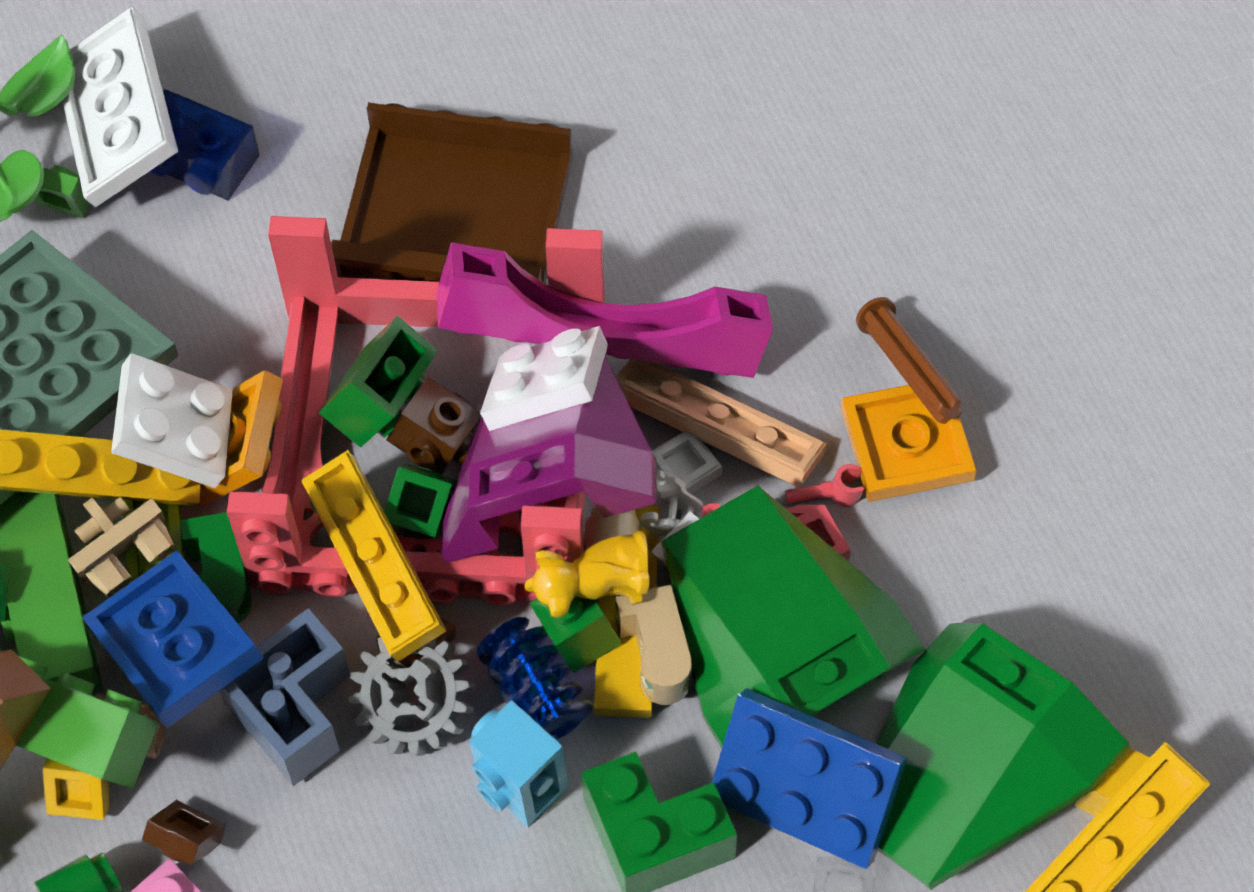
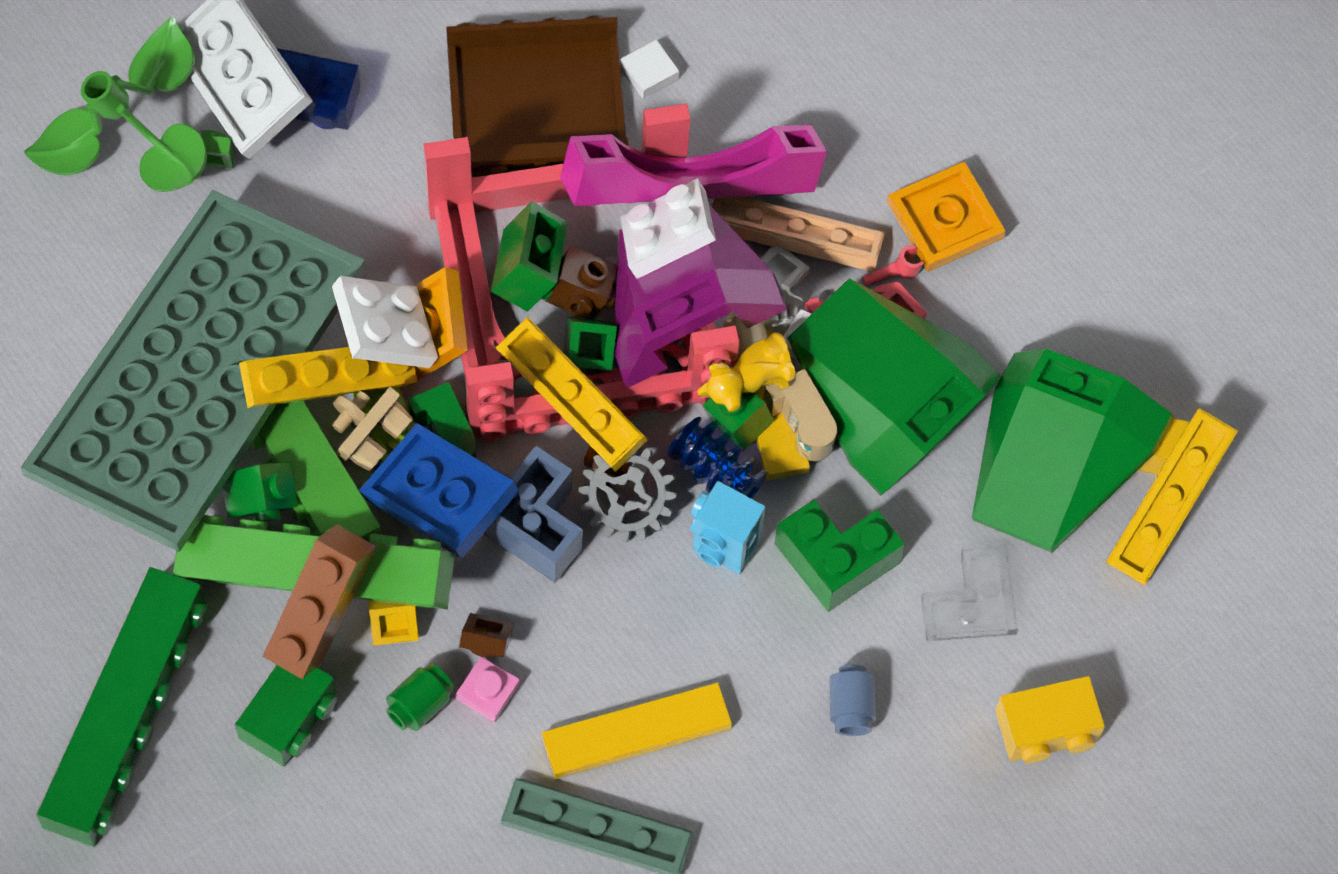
camera: 20 degrees left, 5 degrees up
(598, 199) = (649, 69): none -> white tile
(807, 778) = (944, 491): blue plate -> none
(880, 321) = (933, 153): dark orange axle -> none

